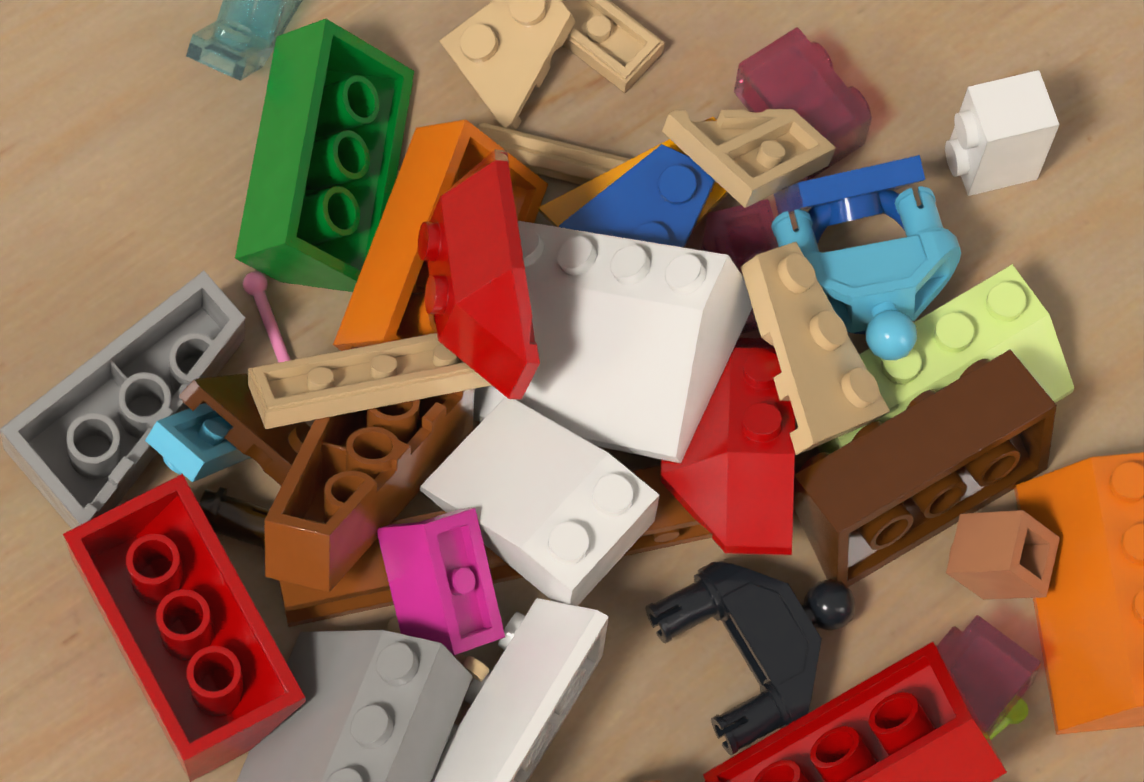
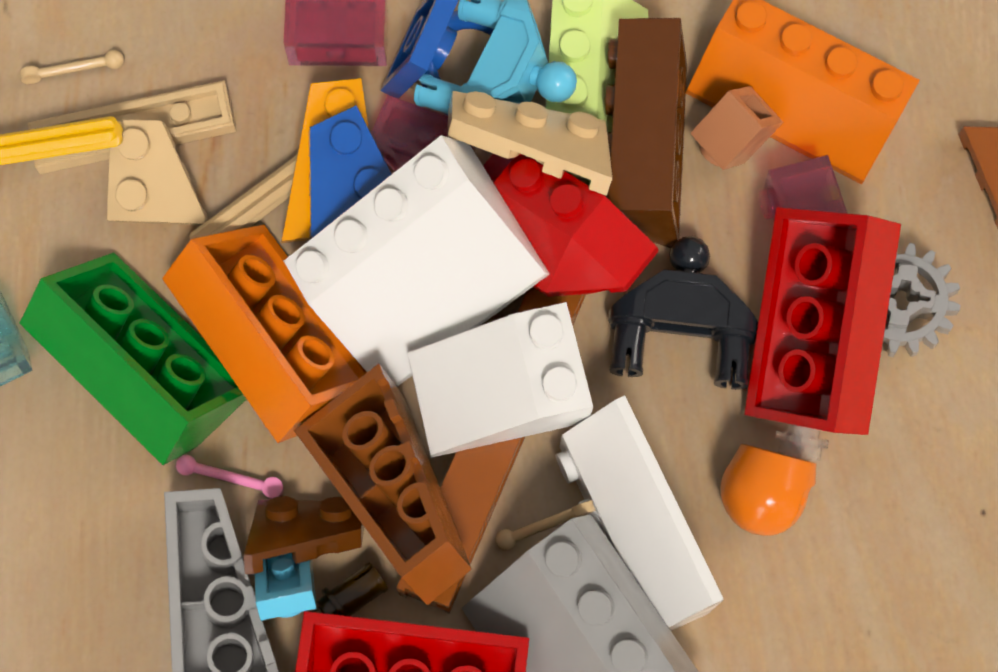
camera: 50 degrees left, 5 degrees up
(358, 380) = (336, 426): tan tile -> none
(442, 580) = (513, 490): dark pink panel -> none
(480, 277) = (323, 303): red wedge -> none
(751, 151) = (358, 75): tan wing -> none

